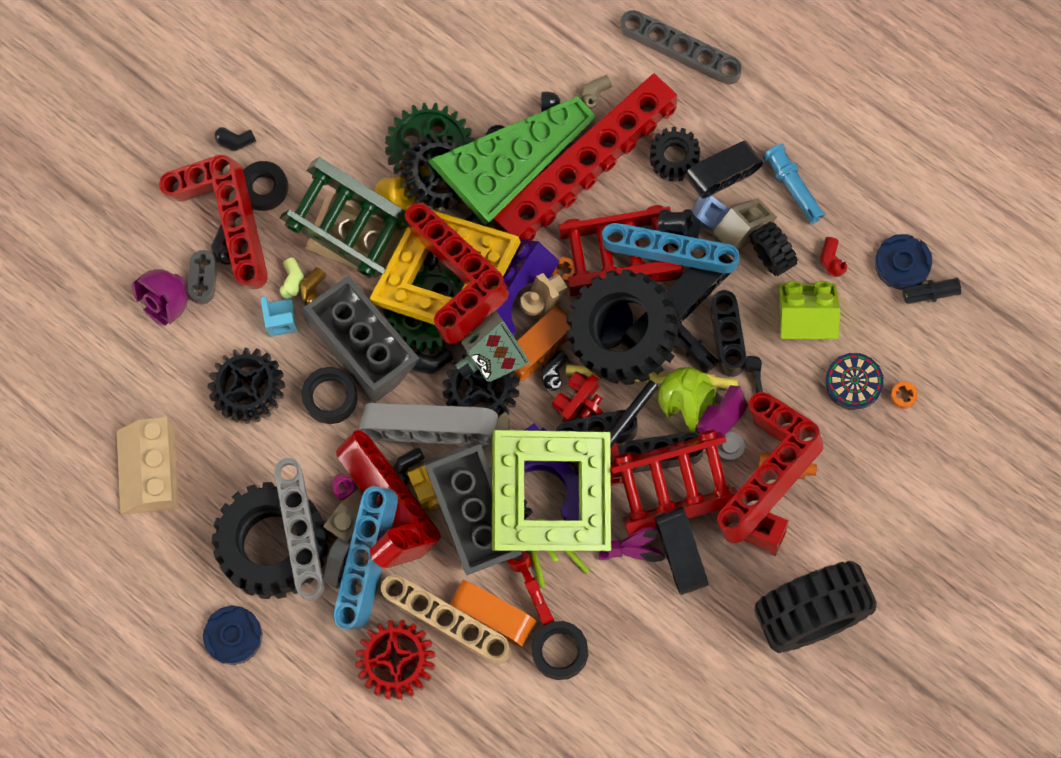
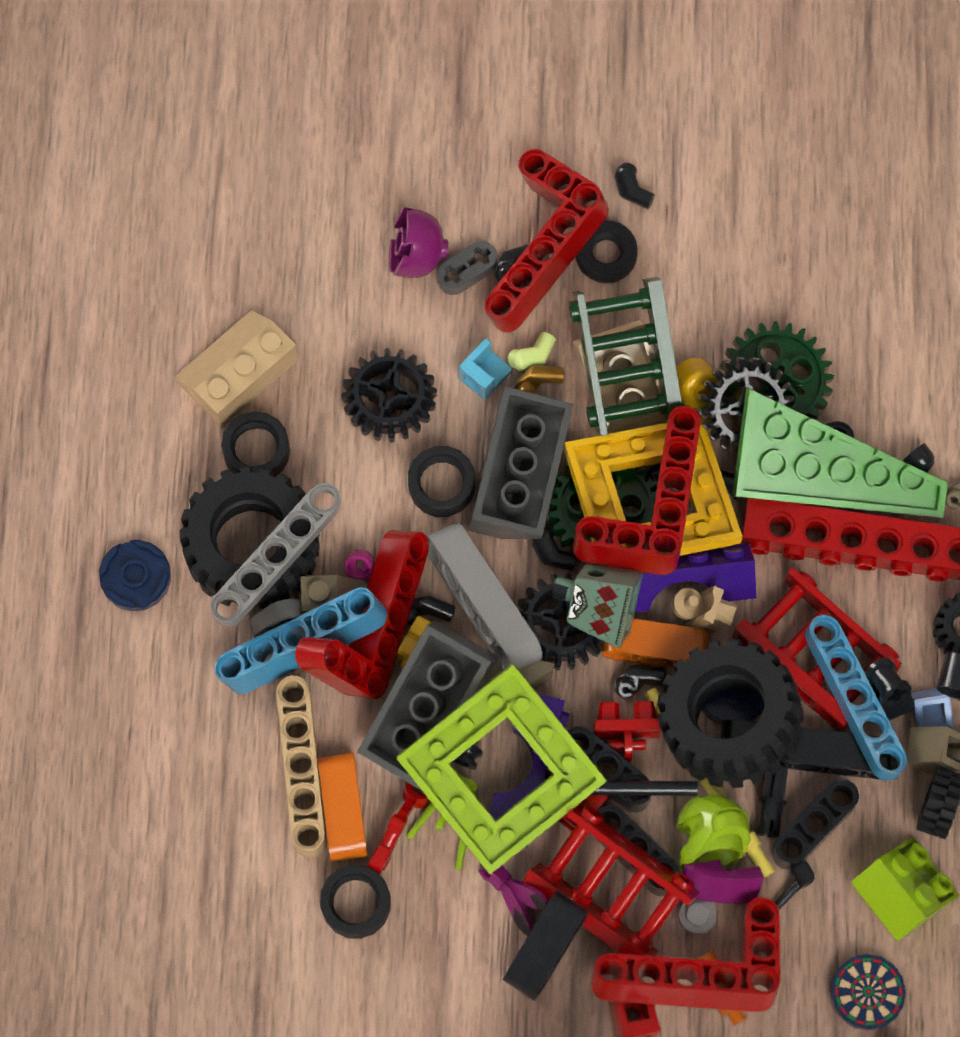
camera: 45 degrees right, 0 degrees up
(195, 479) = (251, 421): none -> black tyre
(382, 662) = (205, 726): red gear -> none
(564, 261) = (759, 602): orange bush -> none

